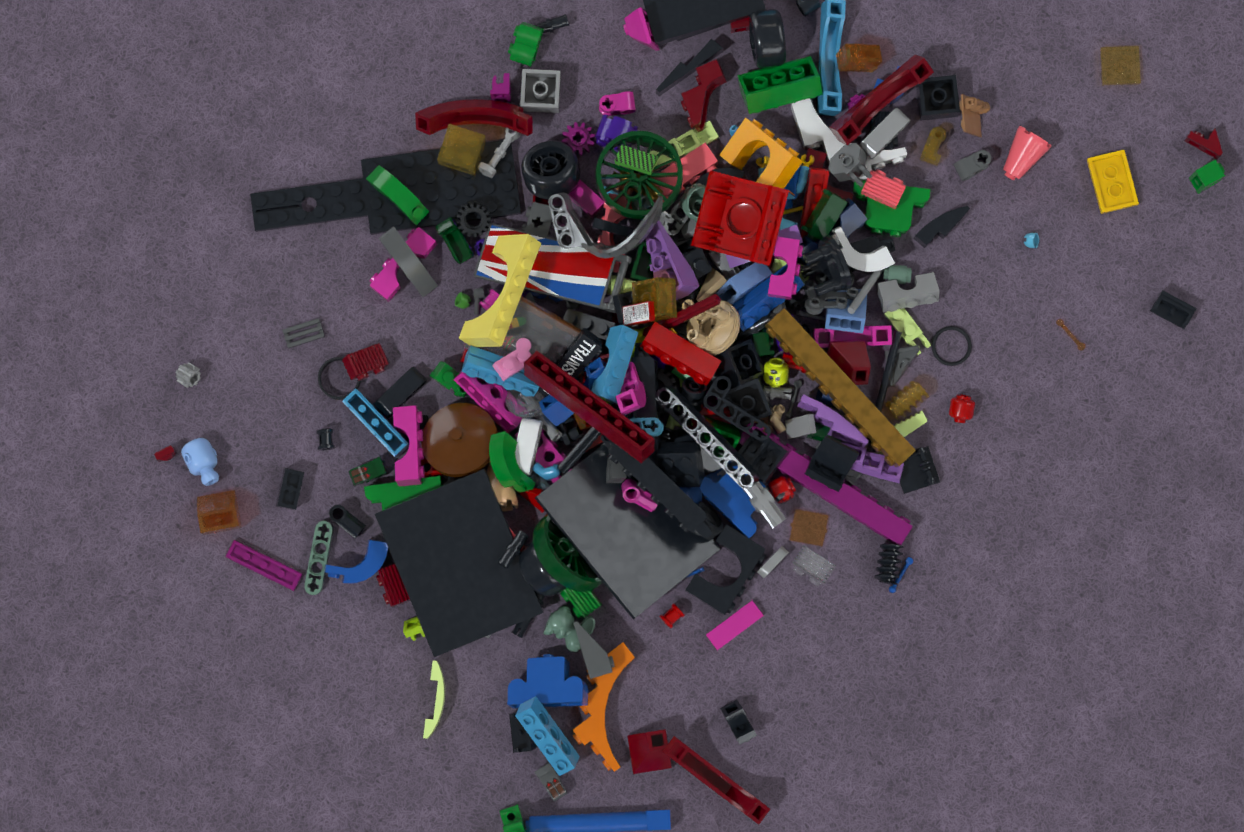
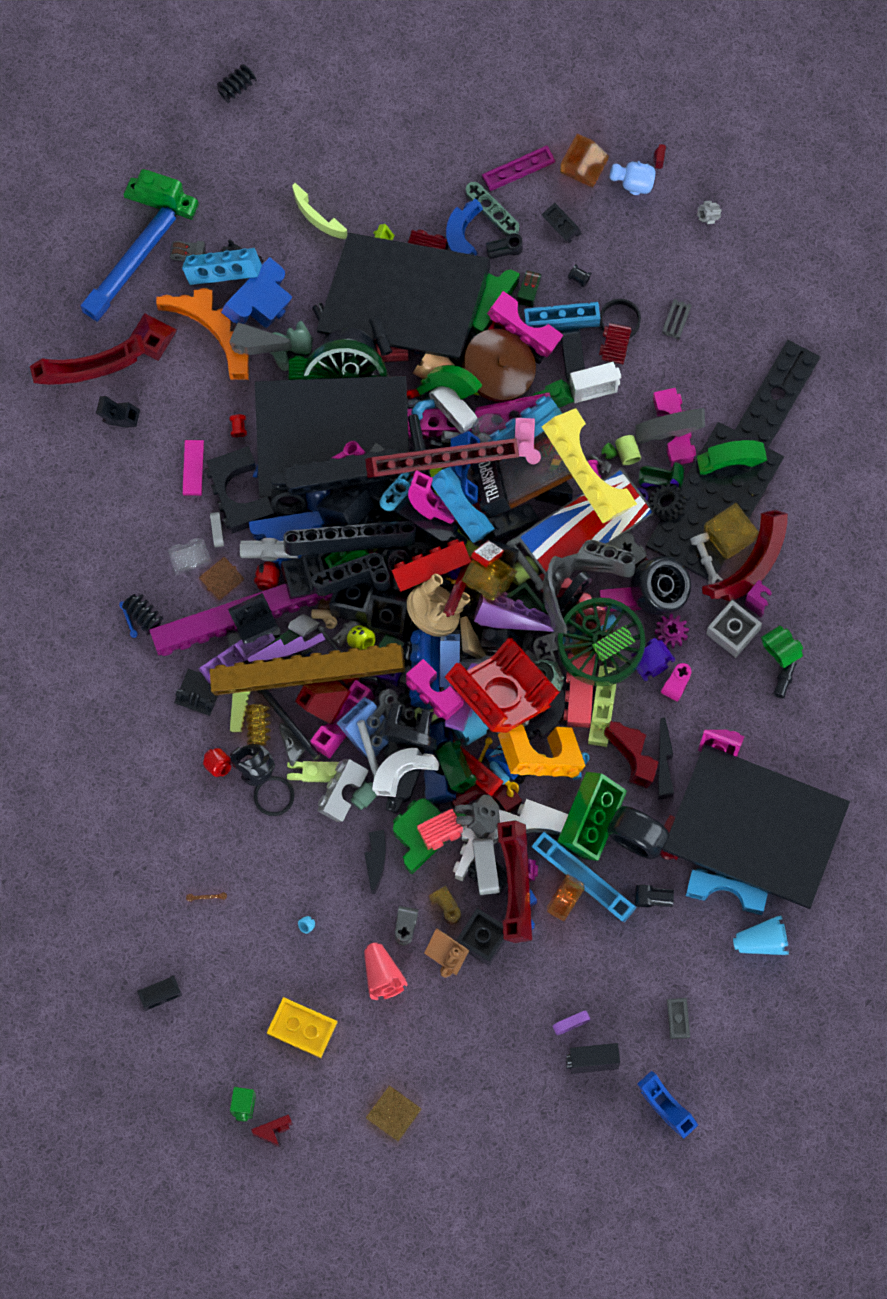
camera: 125 degrees right, 10 degrees down
(414, 352) = (594, 382): none -> white window
(451, 285) = (628, 450): none -> yellowish green piece
(946, 371) = (256, 769): none -> black helmet

